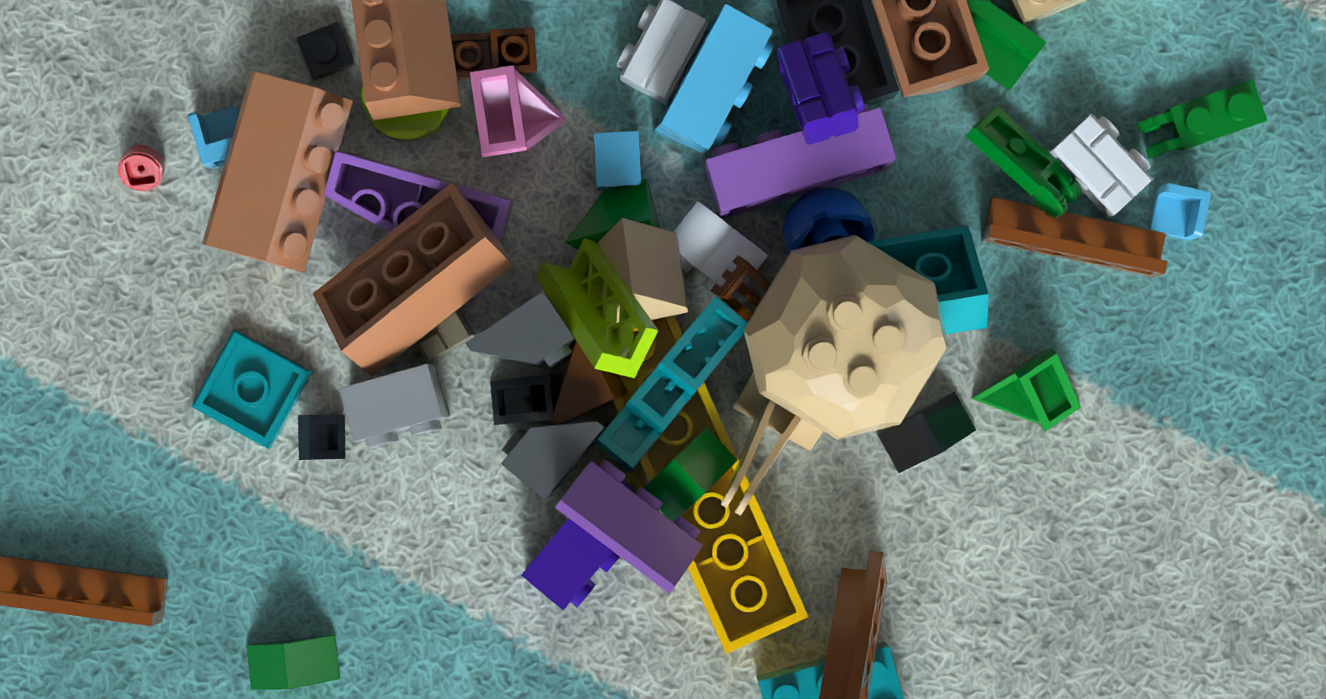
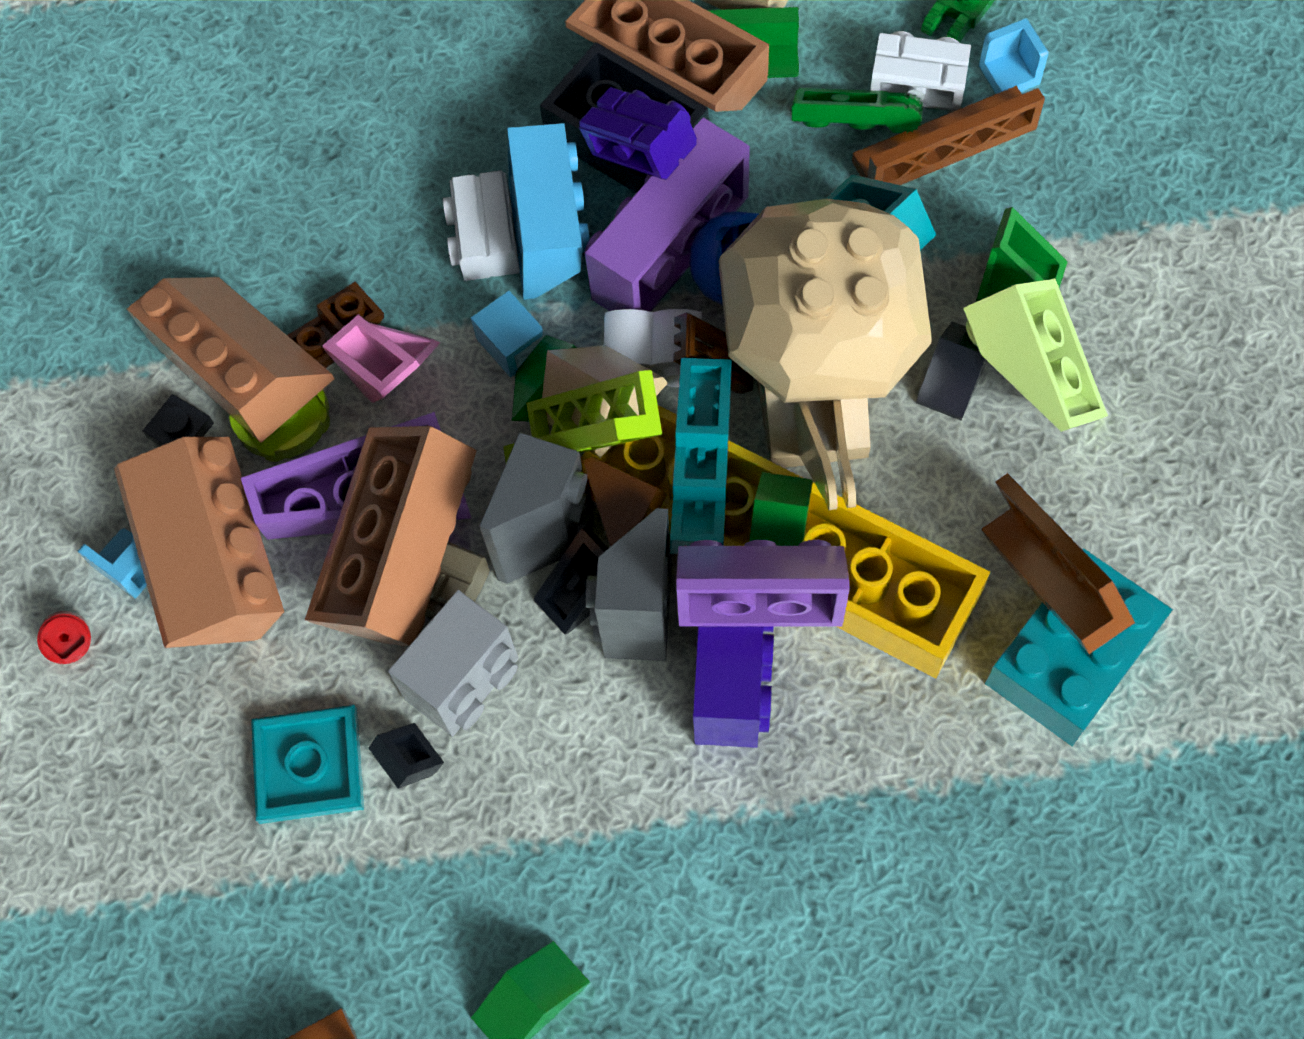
camera: 30 degrees left, 20 degrees down
(983, 476) = (1036, 348): none -> yellowish green slope

